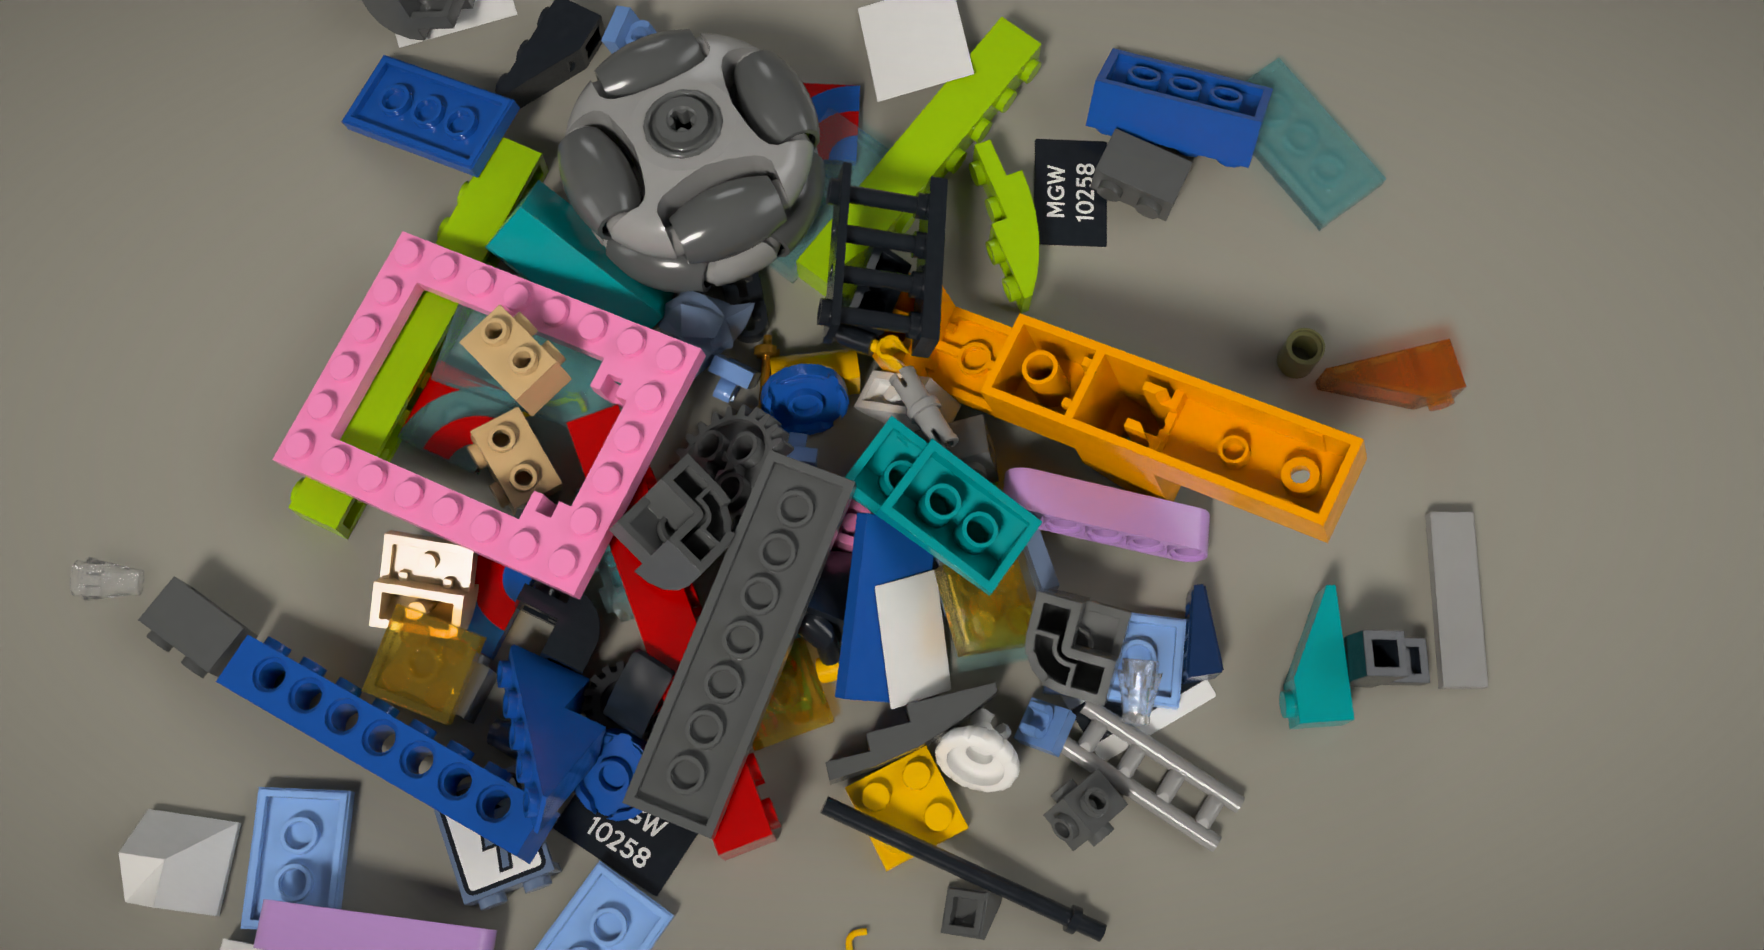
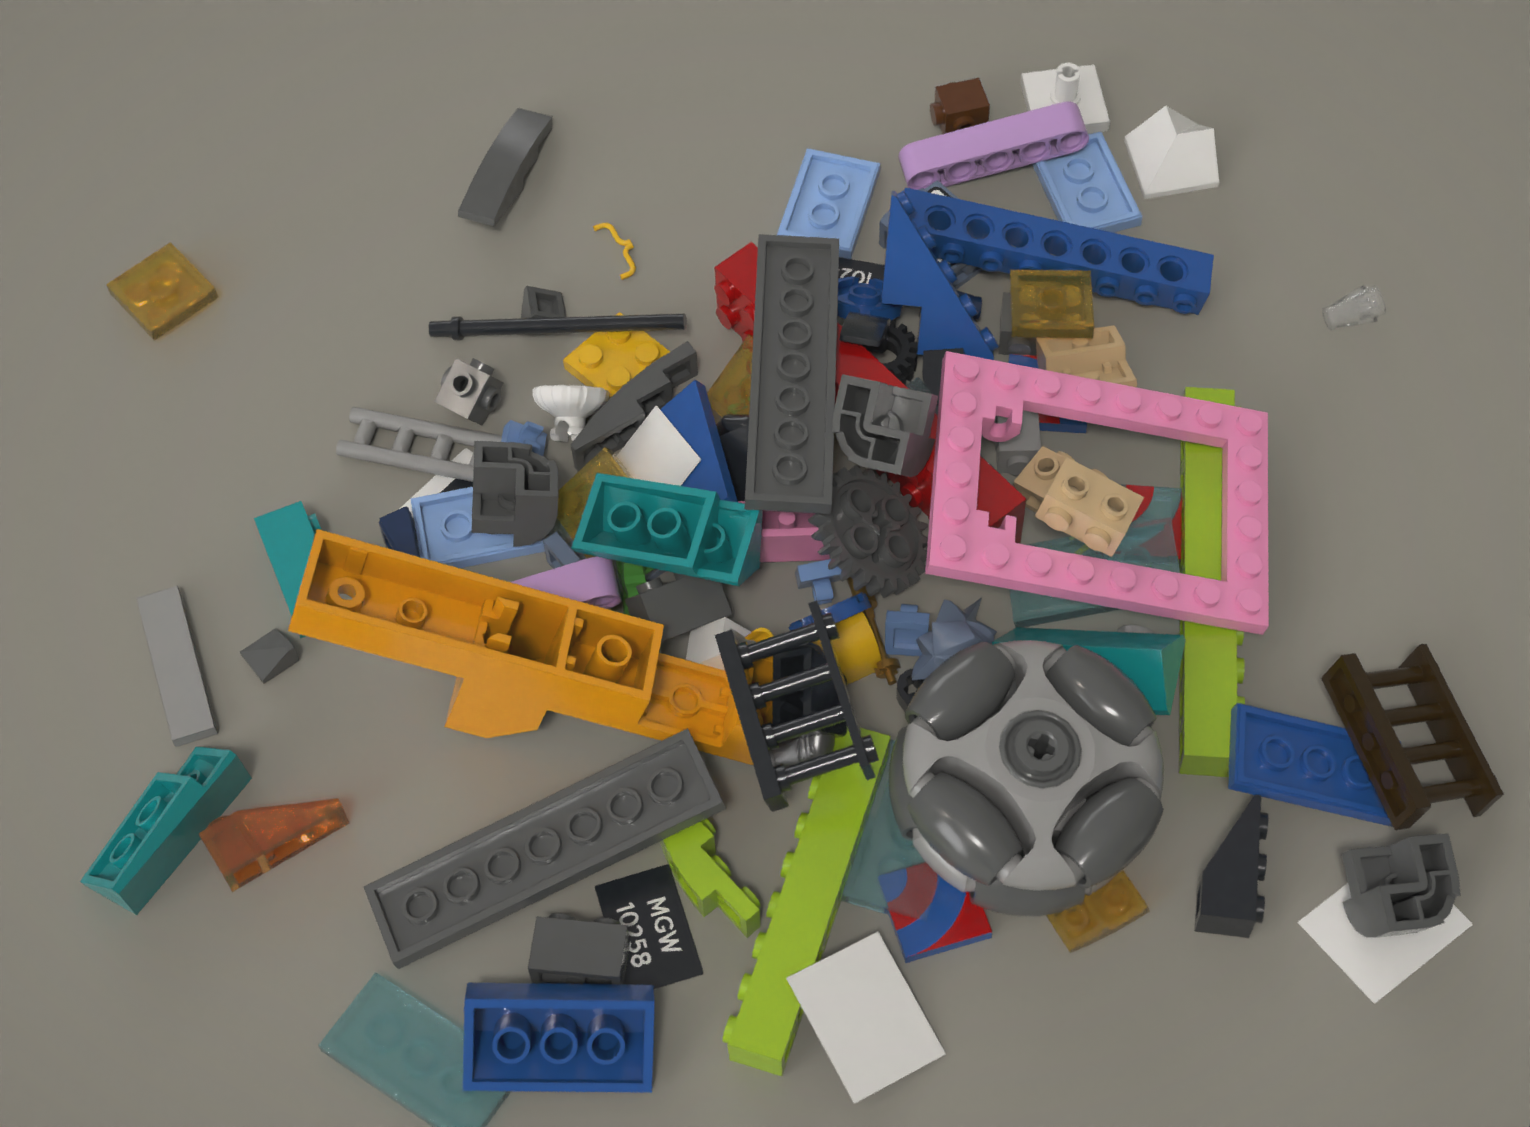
camera: 165 degrees right, 15 degrees down
(195, 627) = (1257, 298): dark grey brick -> none
(366, 114) = (1381, 751): none -> dark brown fence
(624, 29) = (1168, 917): medium blue tile -> none
(922, 407) = (709, 612): light grey pin -> none
(1138, 689) = (449, 490): clear cone -> none
(1145, 264) = (543, 848): none -> dark grey plate
(1309, 341) = (364, 815): olive beam -> none
(1359, 579) = (270, 655): none -> dark grey slope
(1386, 659) = (240, 579): black brick -> none
(1495, 426) = (165, 827): none -> teal slope

